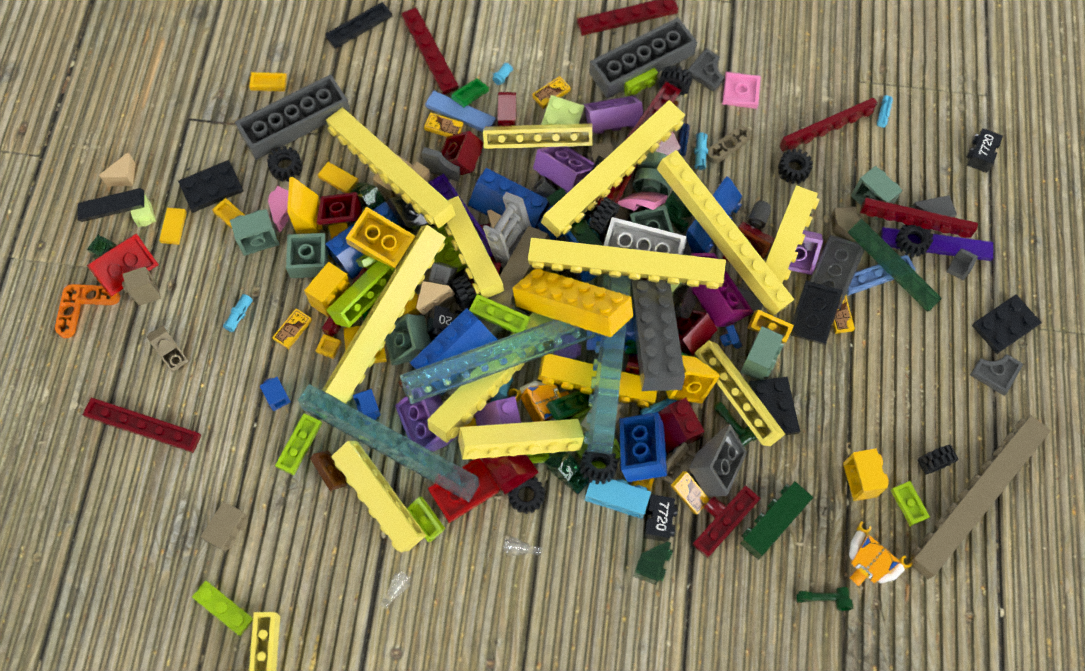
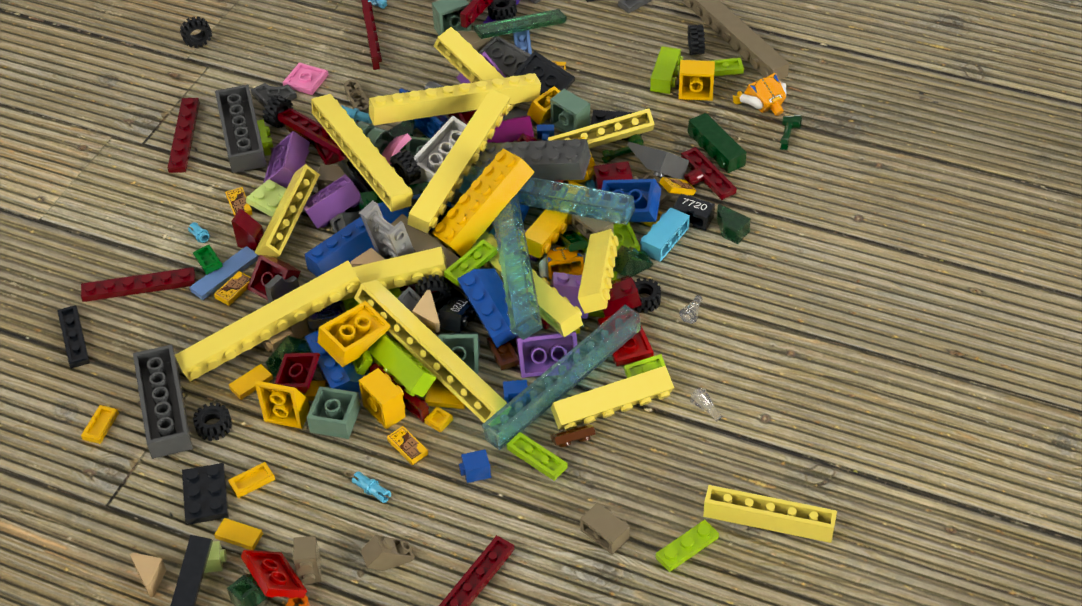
camera: 70 degrees left, 20 degrees down
(254, 232) = (287, 450): sand green brick -> none
(278, 205) = (264, 430): bright pink slope -> none
(595, 473) = (636, 232): black tyre -> none
(795, 175) = (406, 59): black tyre -> none
(883, 436) = (666, 70): none -> lime brick

